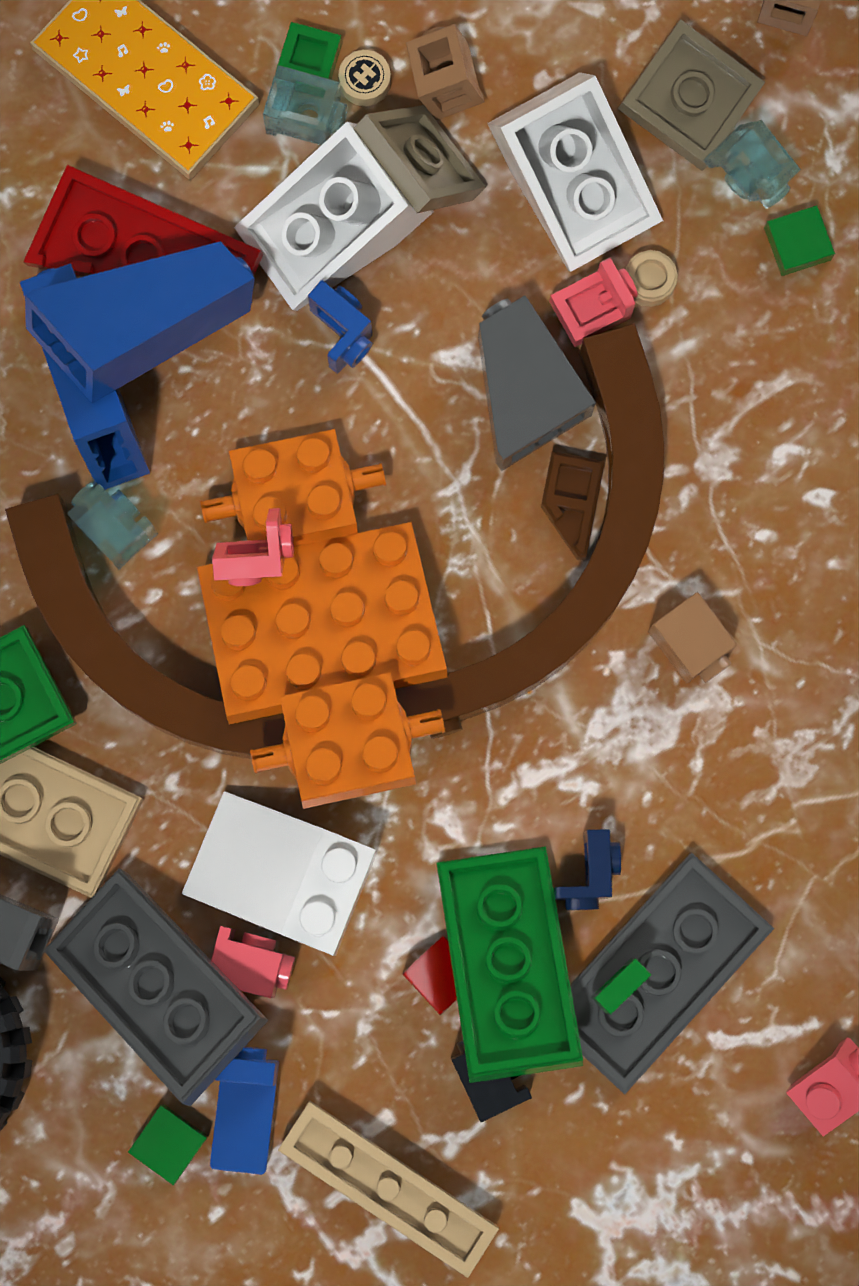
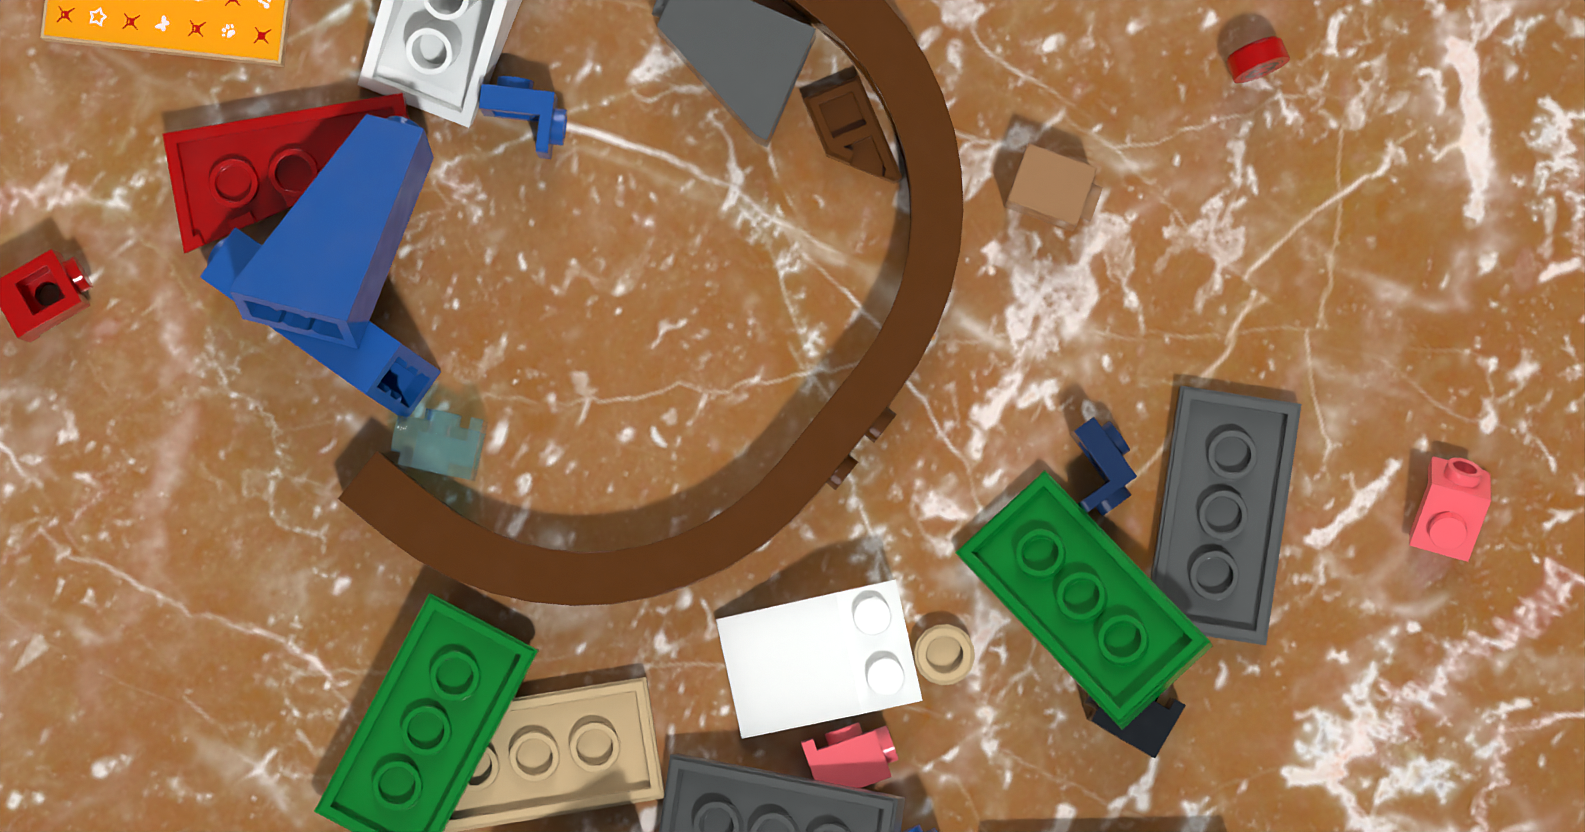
camera: 30 degrees left, 5 degrees up
(250, 561) = (603, 391): coral bracket -> none
(330, 631) = (700, 402): orange piece -> none
(376, 934) = (944, 654): none -> tan tile
(434, 976) = (1022, 656): red slope -> none
(621, 986) = (1198, 551): green tile -> none

